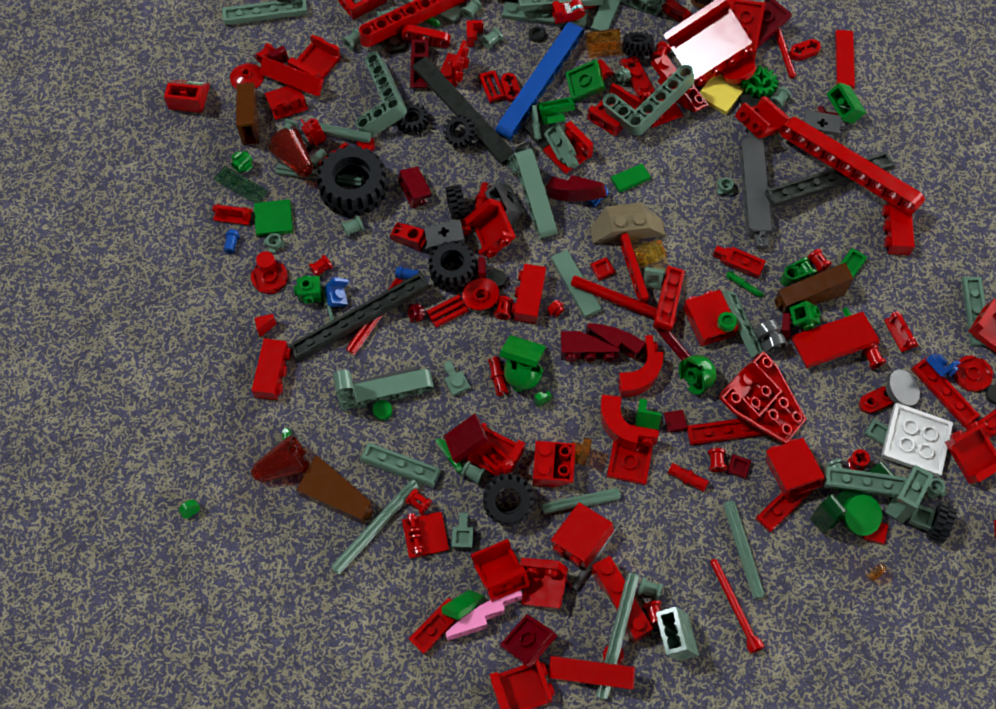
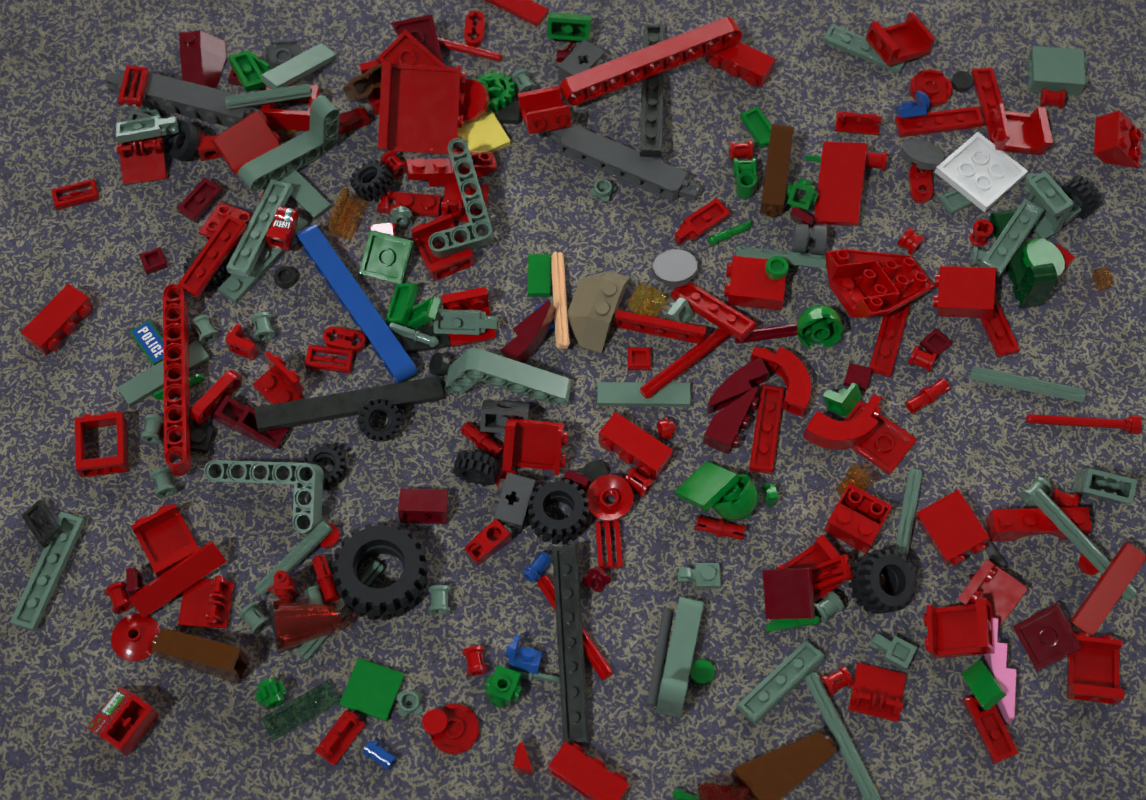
camera: 65 degrees left, 0 degrees up
(593, 375) = (766, 429): none -> red tile
(616, 197) = (560, 300): none -> light nougat axle
(689, 259) = (675, 267): none -> tile
(816, 411) = (911, 241): none -> red wheel

